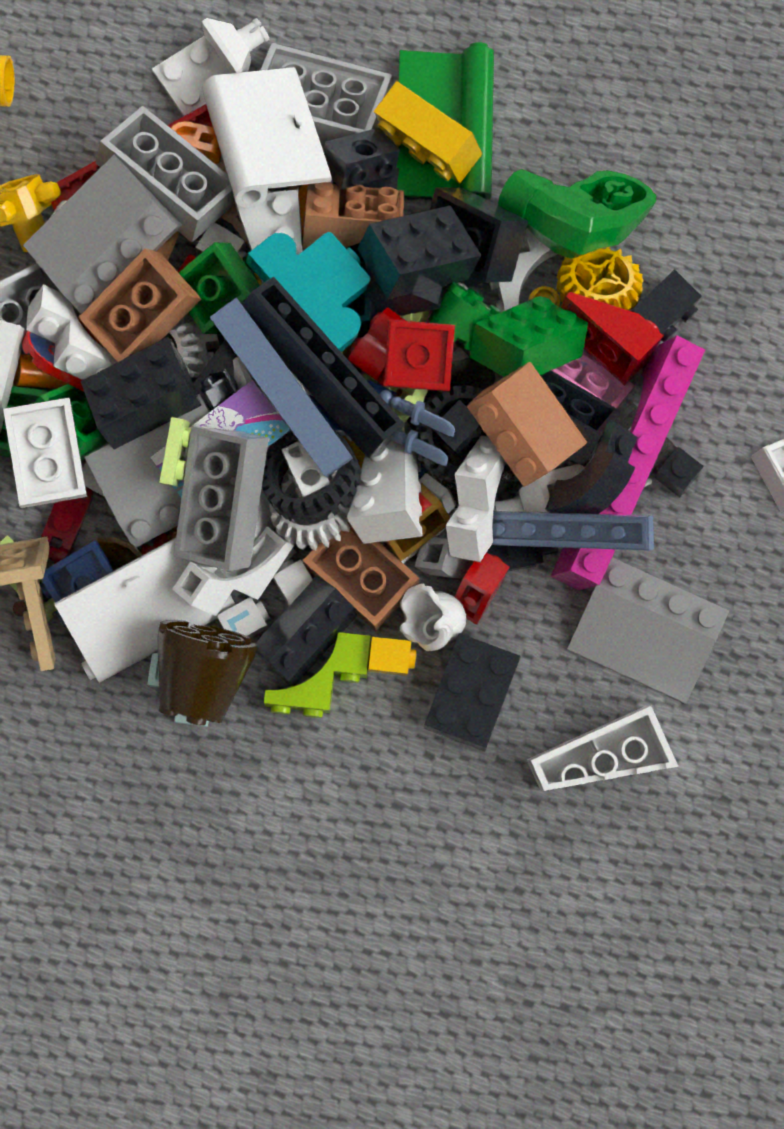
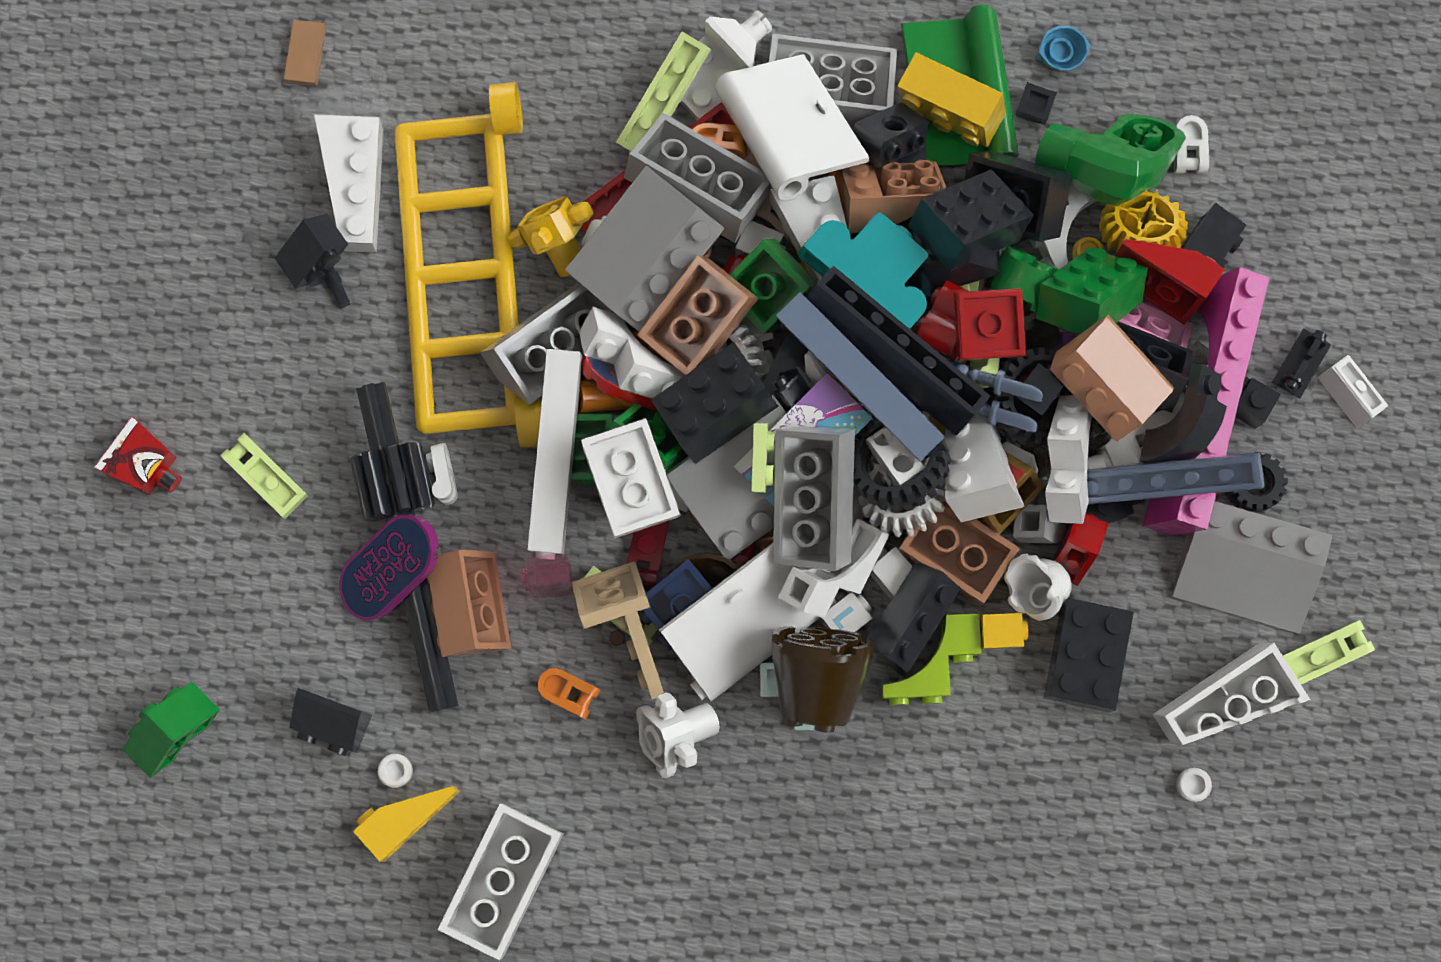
camera: 15 degrees left, 0 degrees up
(52, 706) = (670, 734): none -> white piece
(156, 80) = (666, 88): none -> yellowish green plate
(518, 147) = (1036, 103): none -> black plate
(554, 97) = (1063, 48): none -> dark azure hat
(555, 833) = (1193, 784): none -> white tile
(668, 202) = (1196, 139): none -> white plate
(688, 548) = (1273, 494): none -> black tyre
(707, 726) = (1328, 652): none -> yellowish green plate
(736, 439) = (1302, 362): none -> black hinge

